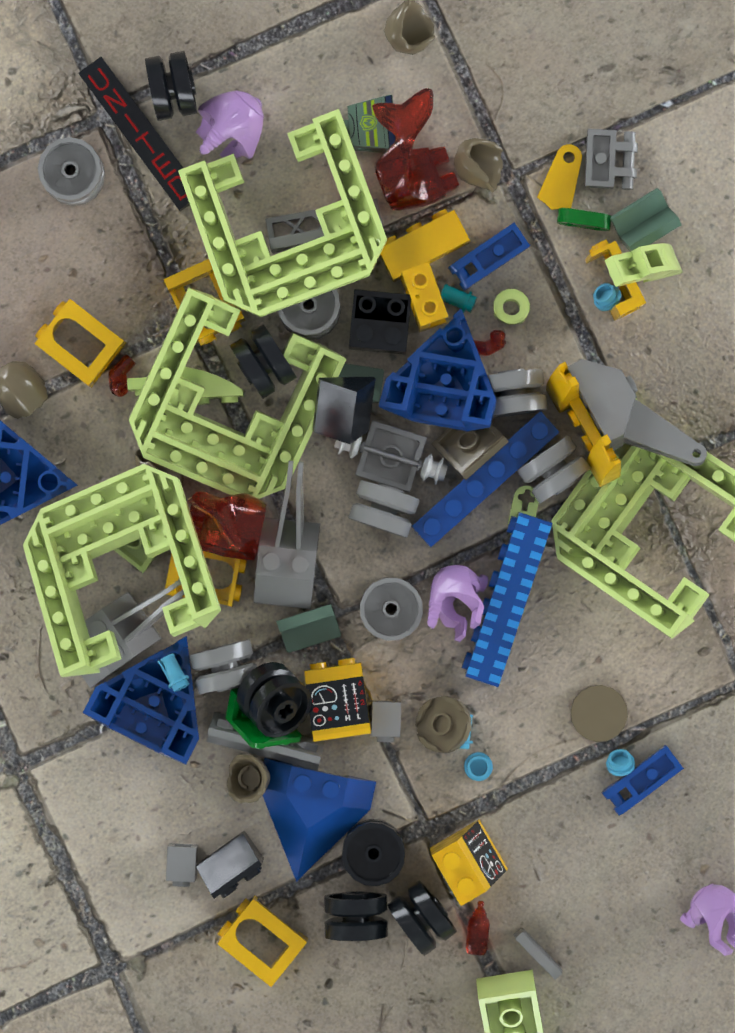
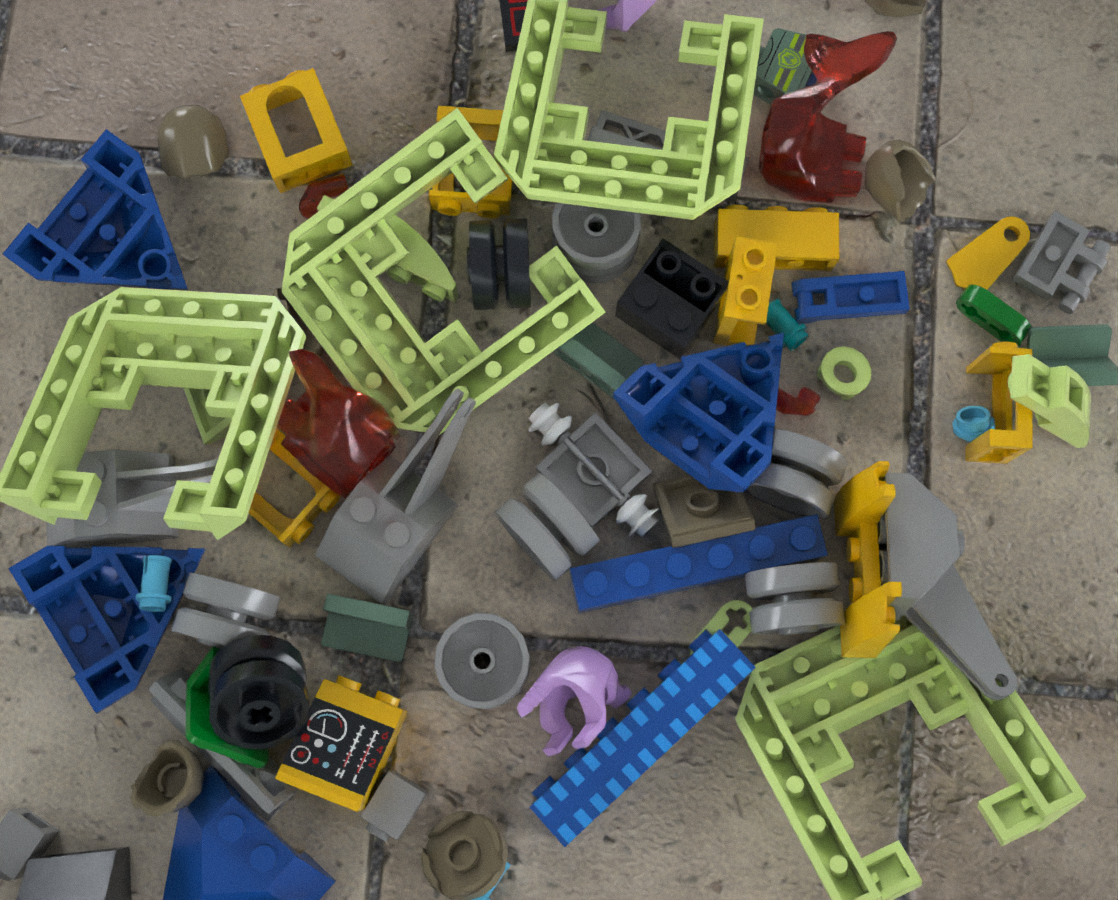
camera: 30 degrees right, 10 degrees down
(343, 407) = (568, 370): black slope -> none

